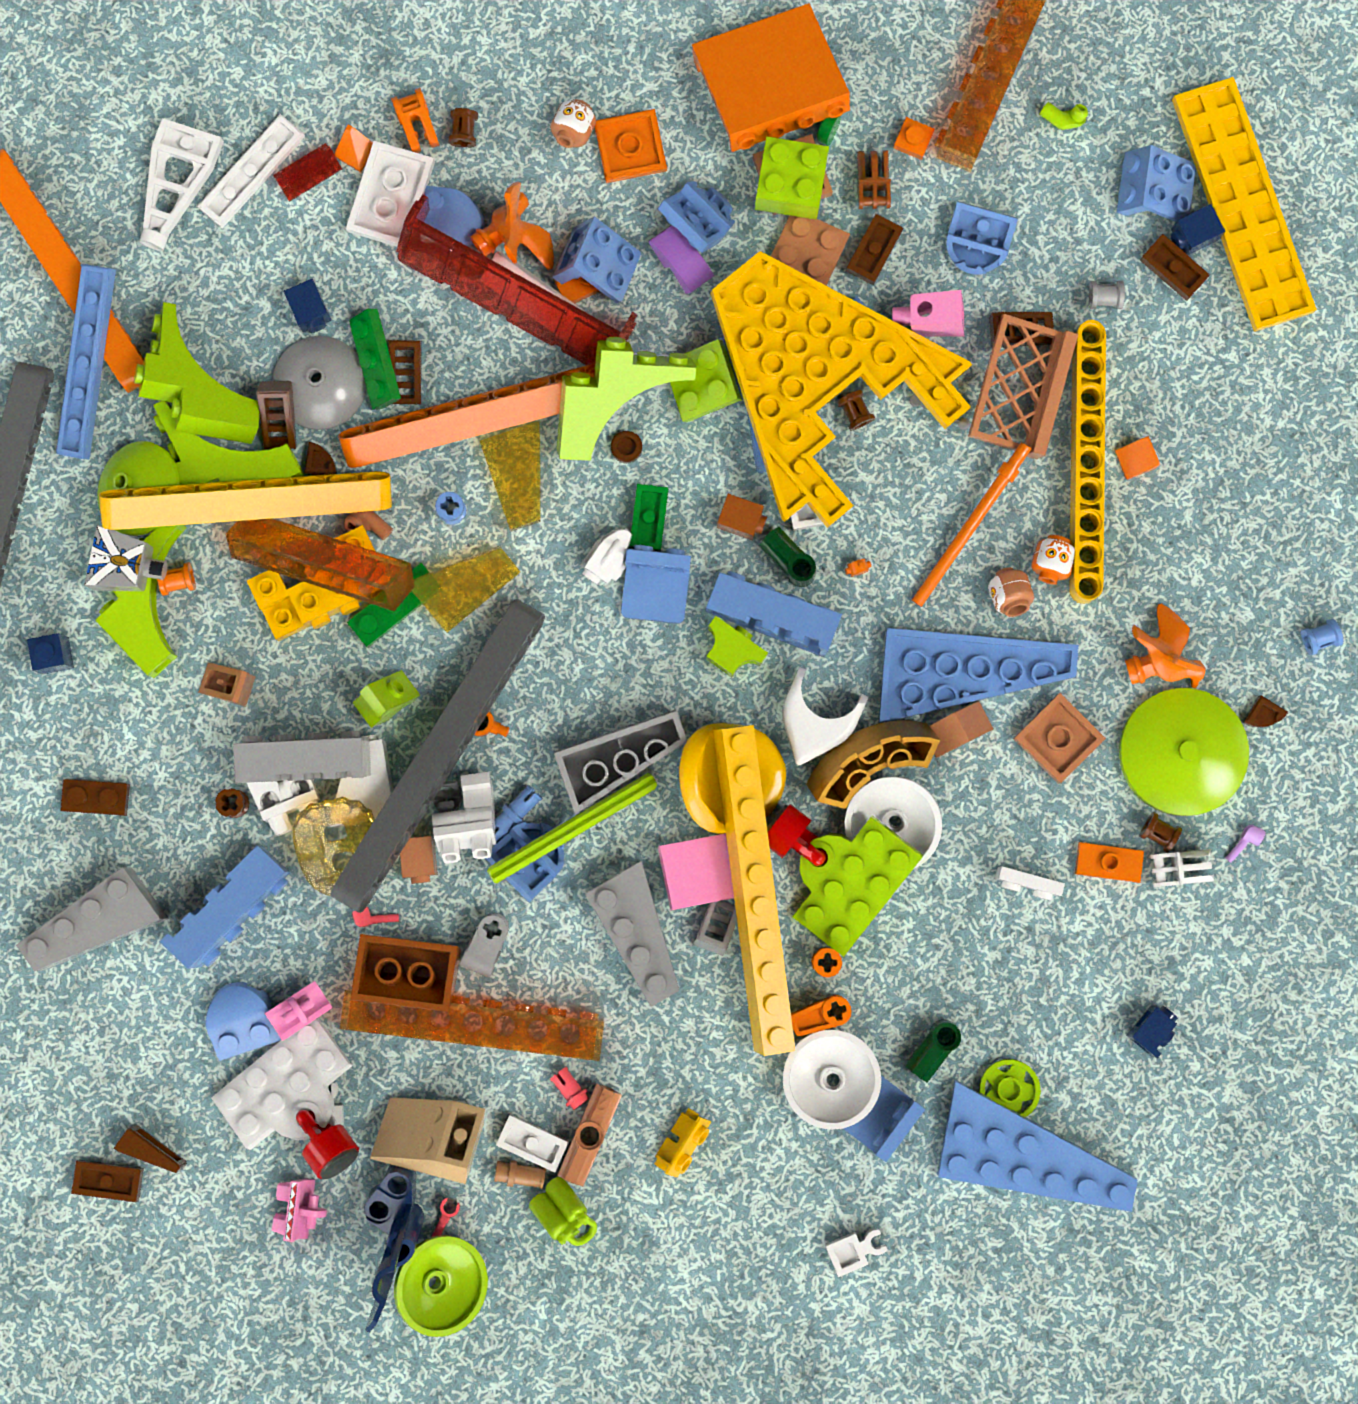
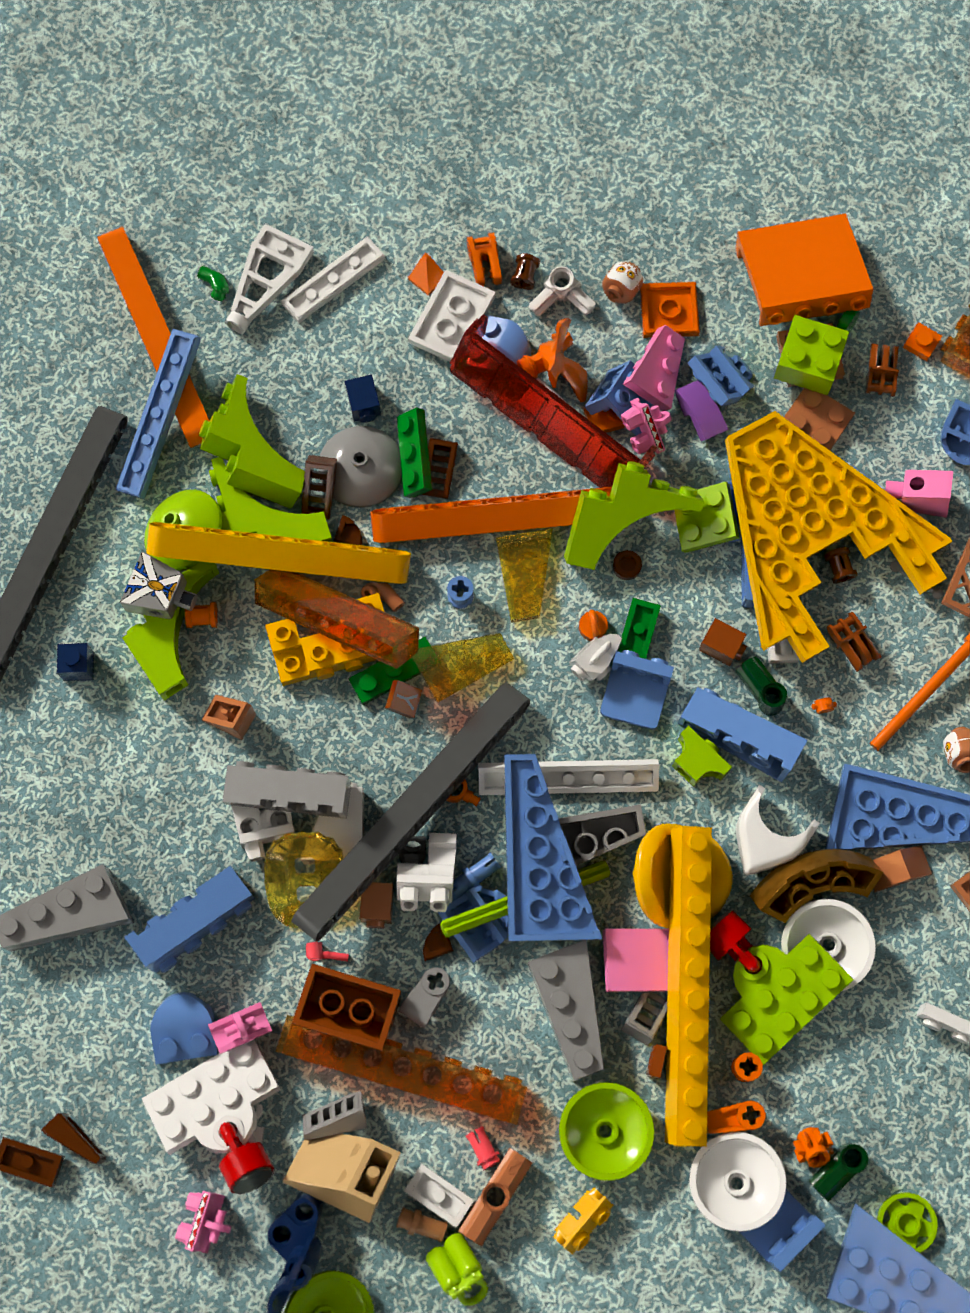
camera: 10 degrees right, 10 degrees down
(95, 797) = (89, 799): reddish brown plate -> none
(123, 195) = (217, 281): none -> green arm
(222, 803) = (218, 816): reddish brown bush -> none
(307, 172) = (383, 287): clear red hinge -> none
(385, 698) = (371, 751): lime brick -> none
(409, 635) = (403, 699): none -> dark orange tile
(421, 1080) = (336, 1117): none -> light grey slope
(444, 1218) = (342, 1255): coral hand -> none
(487, 890) = (436, 944): none -> reddish brown tile
(516, 145) = (570, 292): none -> white axle
(584, 805) = (542, 878): none -> medium blue wing
(597, 690) = (581, 776): none -> white plate
(599, 520) = (593, 625): none -> orange tile
(613, 282) = (651, 423): none -> bright pink hips
(627, 220) = (658, 369): none -> bright pink wing
(687, 1076) = (630, 1131): none -> lime dish
(733, 972) = (656, 1061): none -> dark orange tile
(874, 249) = (875, 429): reddish brown plate -> none
(880, 492) = (856, 645): none -> dark orange arm
(905, 1031) = (813, 1147): none -> orange gear

